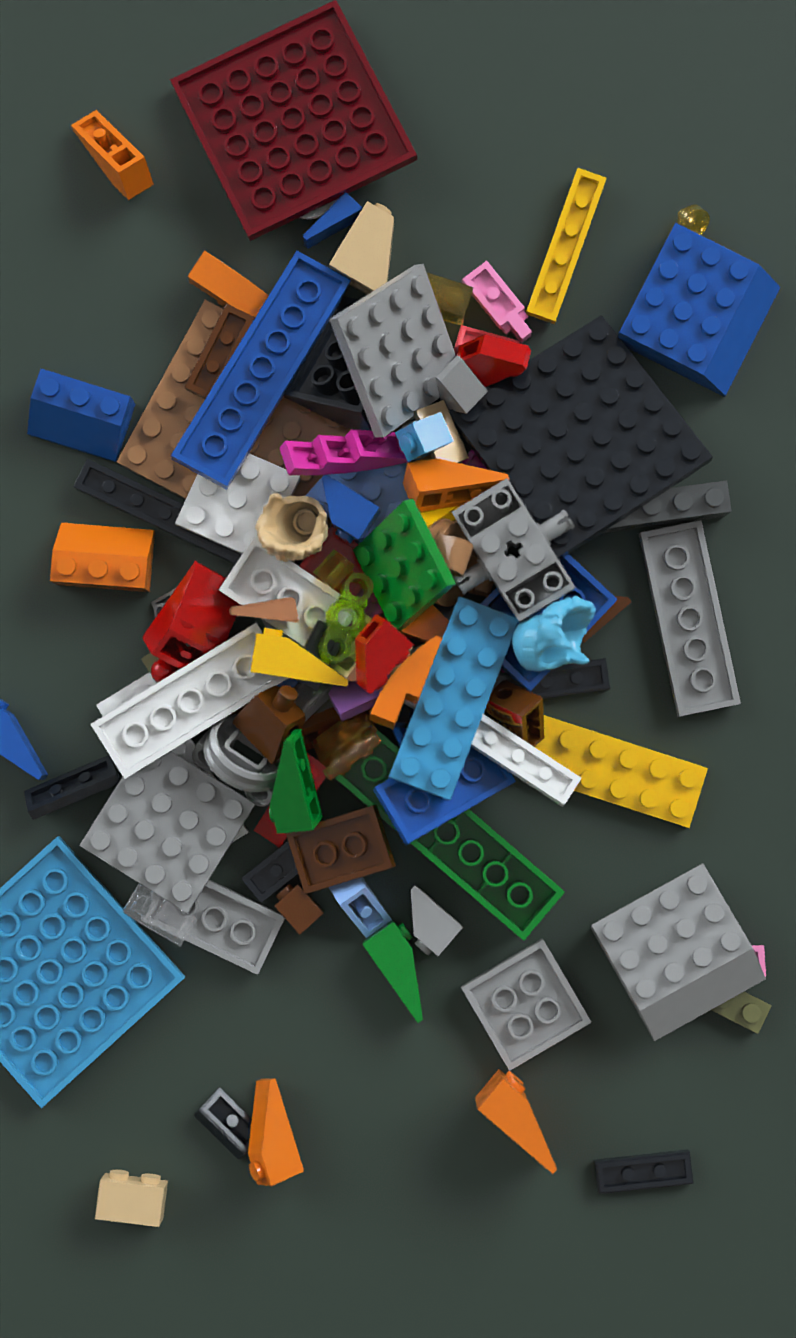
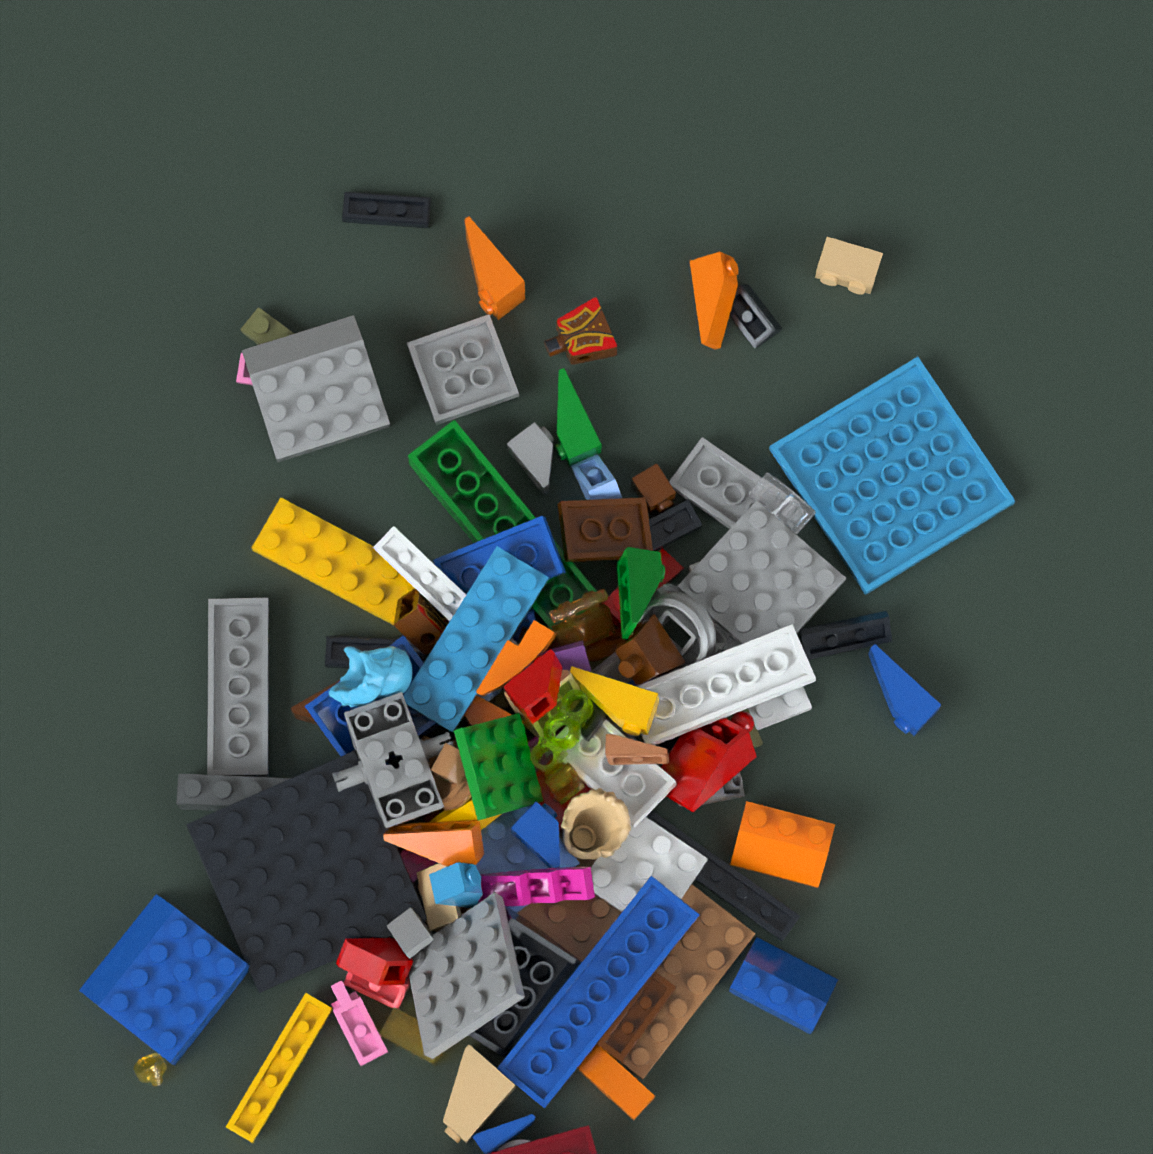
camera: 165 degrees left, 10 degrees down
(404, 1066) = (583, 335): none -> torso

